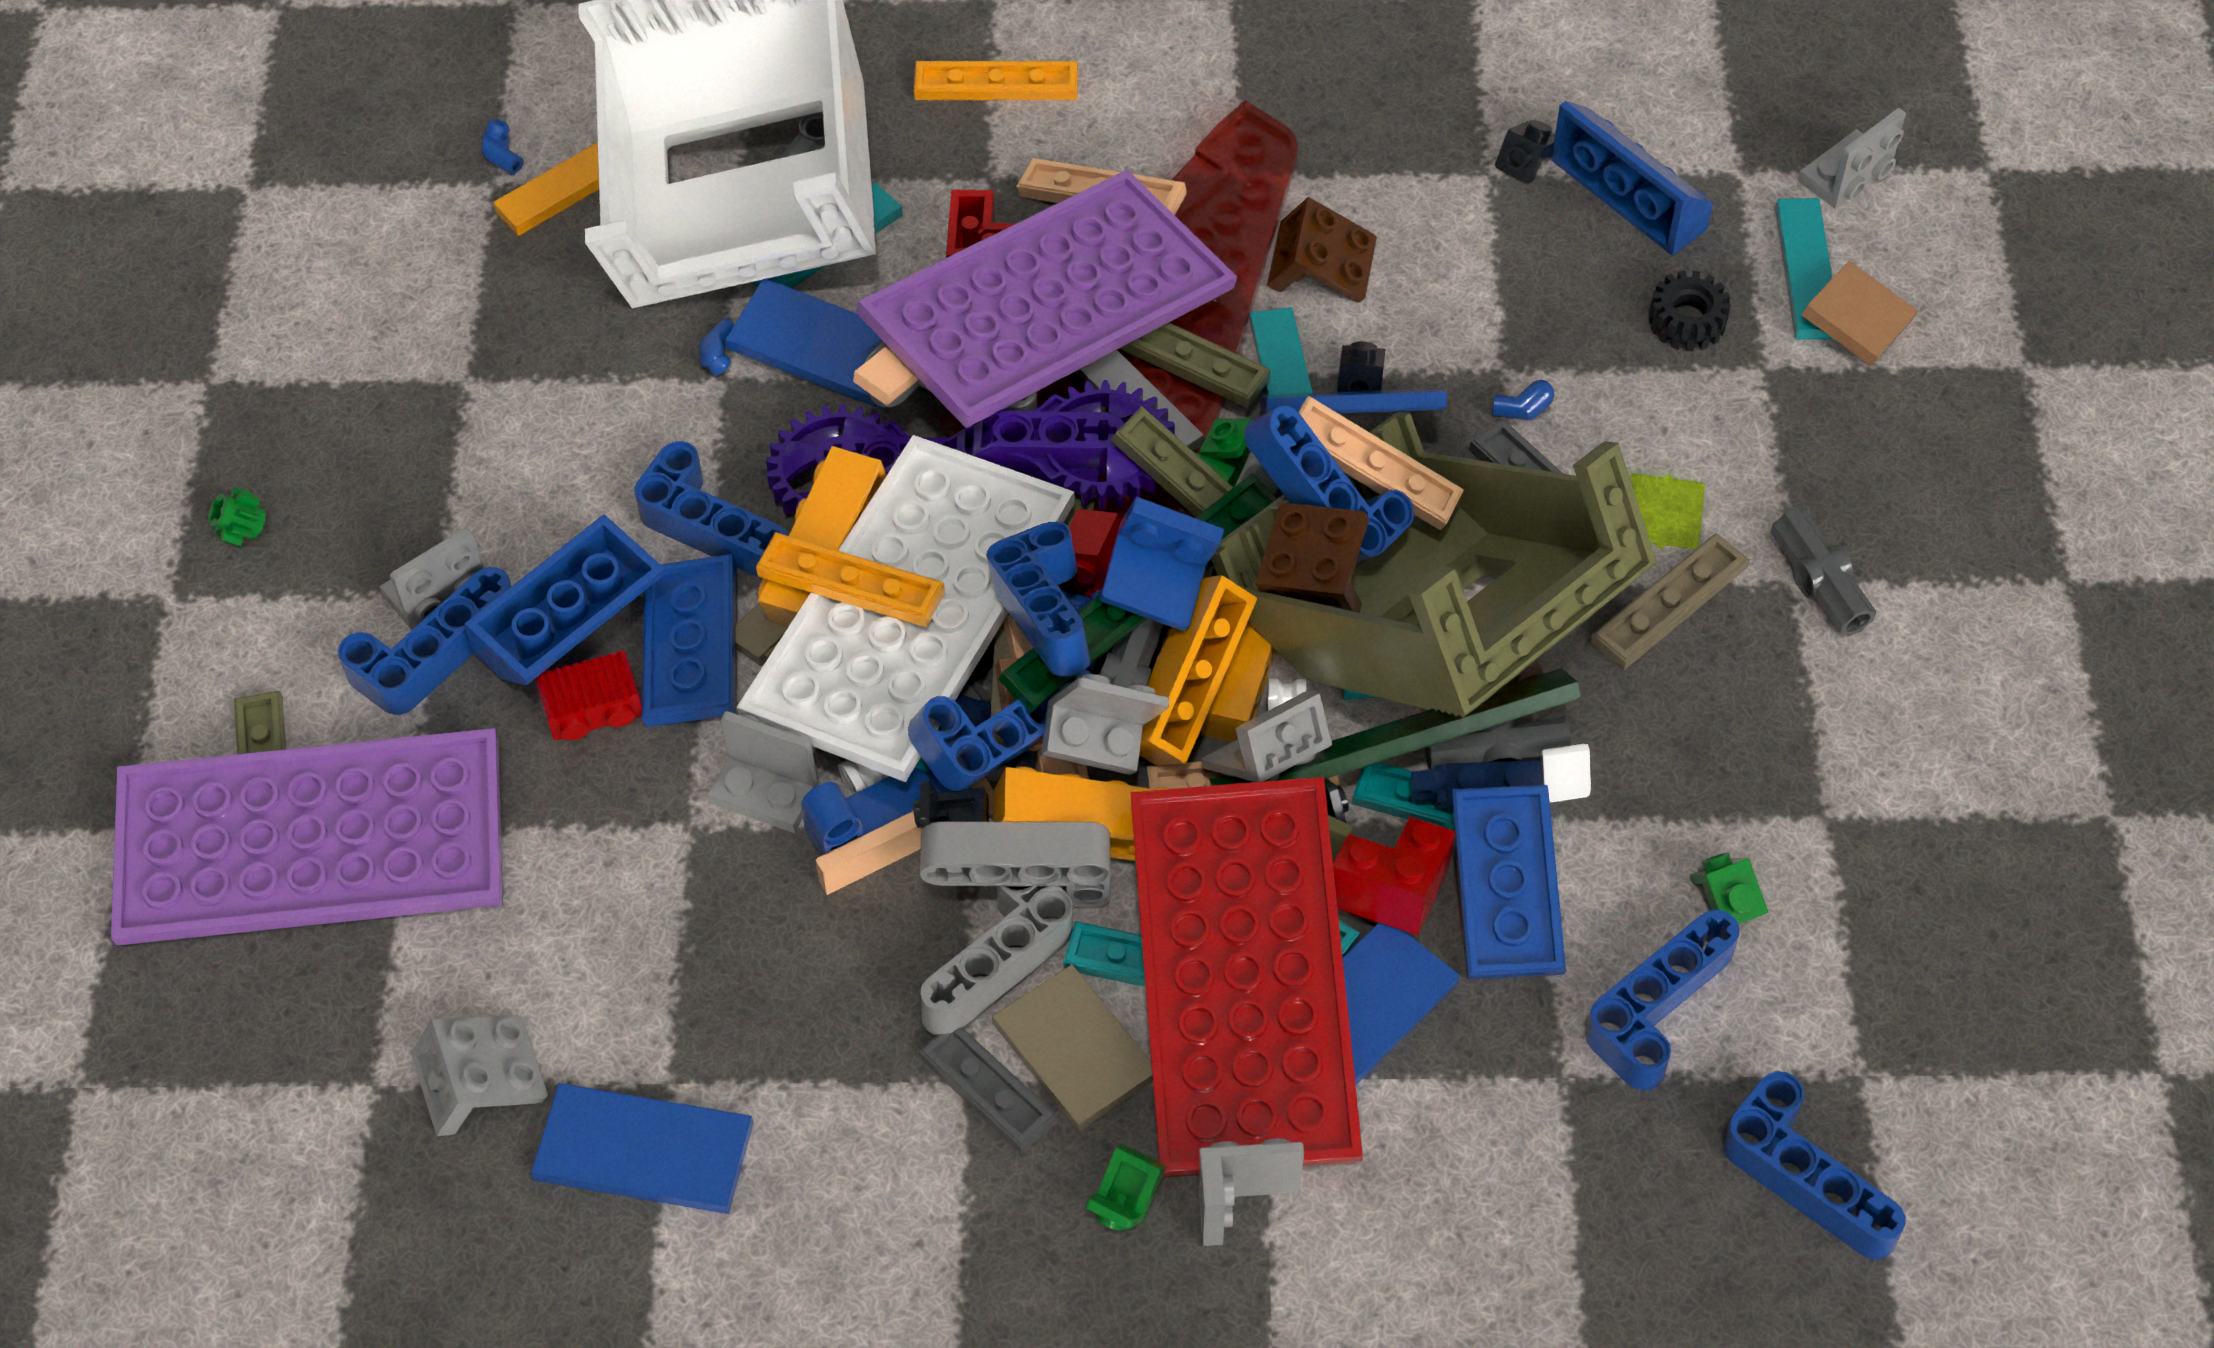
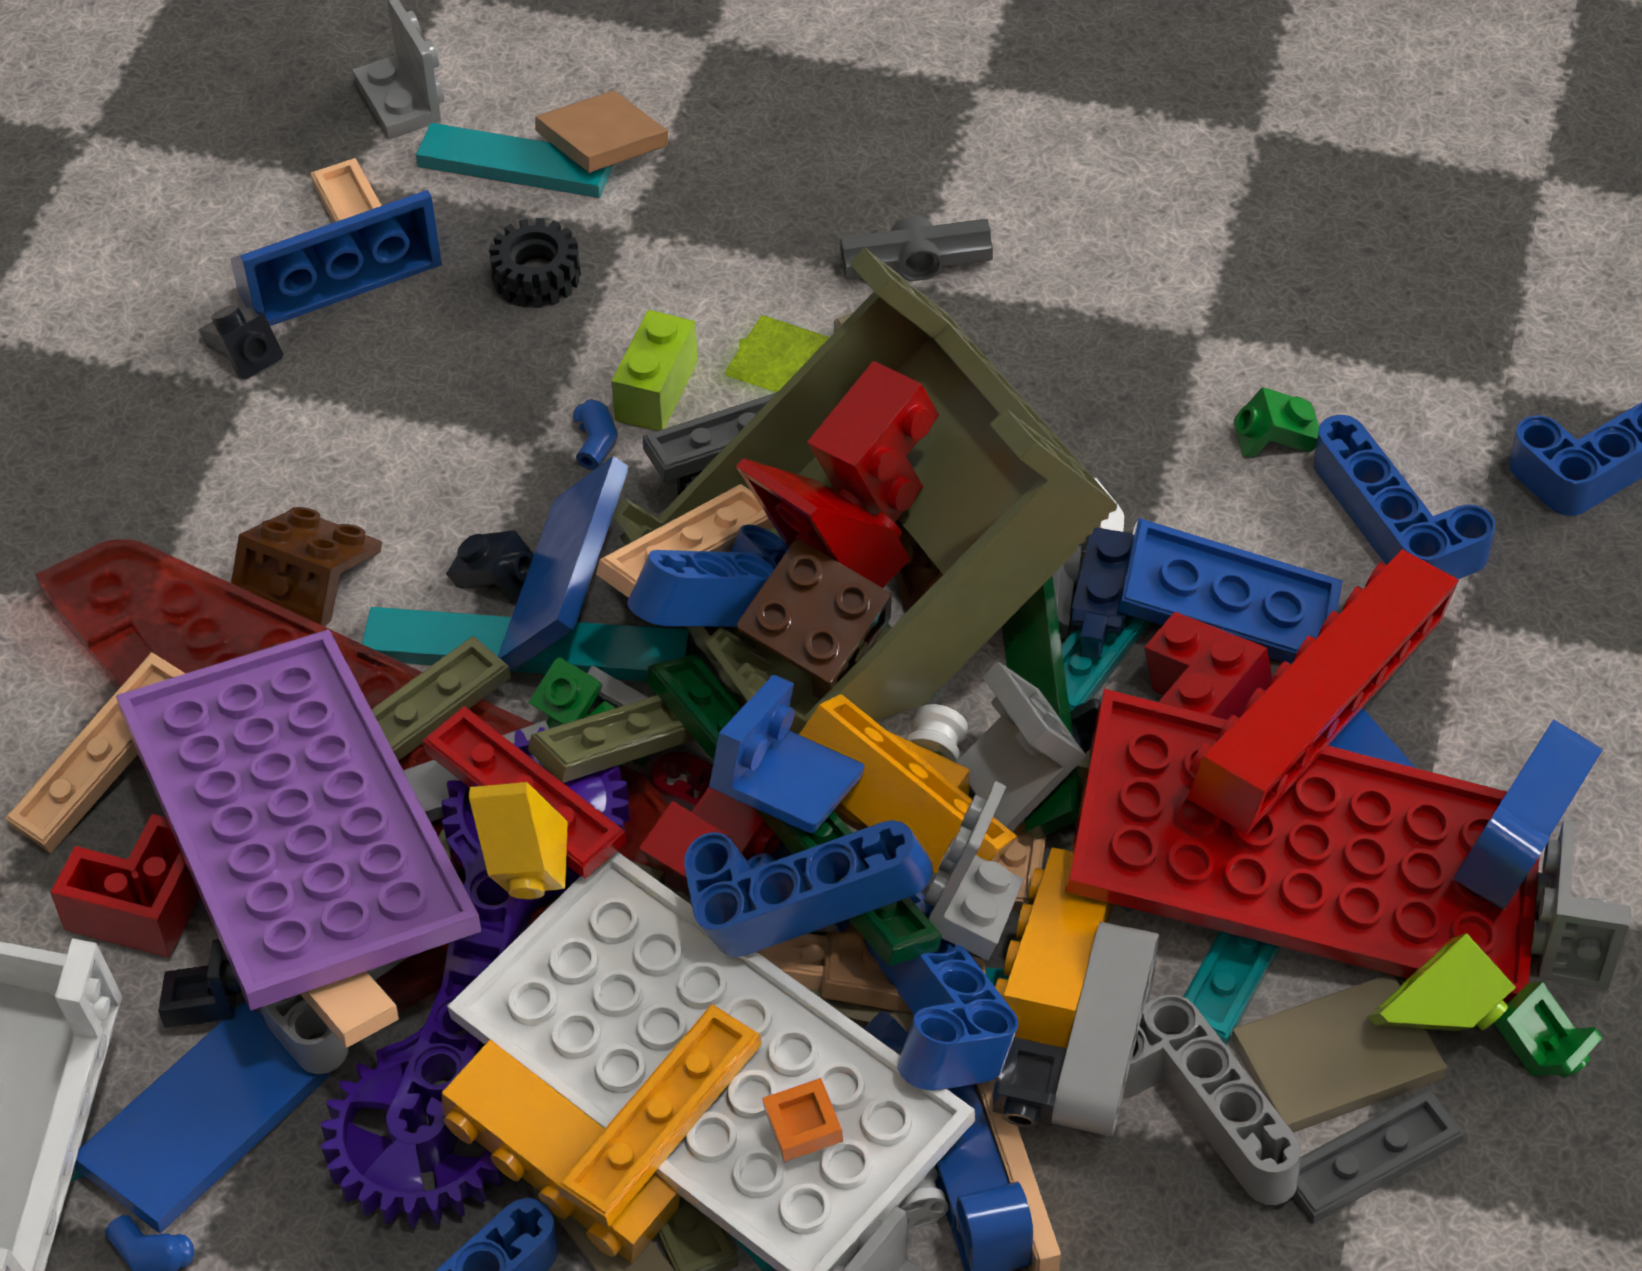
camera: 75 degrees left, 5 degrees down
(858, 660) = (802, 1119): none -> orange plate
(1027, 417) = (520, 838): none -> yellow slope
(1097, 420) = (485, 758): none -> red tile
(1127, 1099) = (1448, 992): none -> lime slope
(1329, 1132) = (1528, 815): none -> blue beam
(1399, 948) = (1320, 691): none -> red brick
(1400, 529) = (827, 521): none -> red slope
(1489, 539) = (869, 437): none -> red brick
(1594, 414) = (654, 370): none -> lime brick
(1718, 169) = (344, 190): none -> light nougat tile

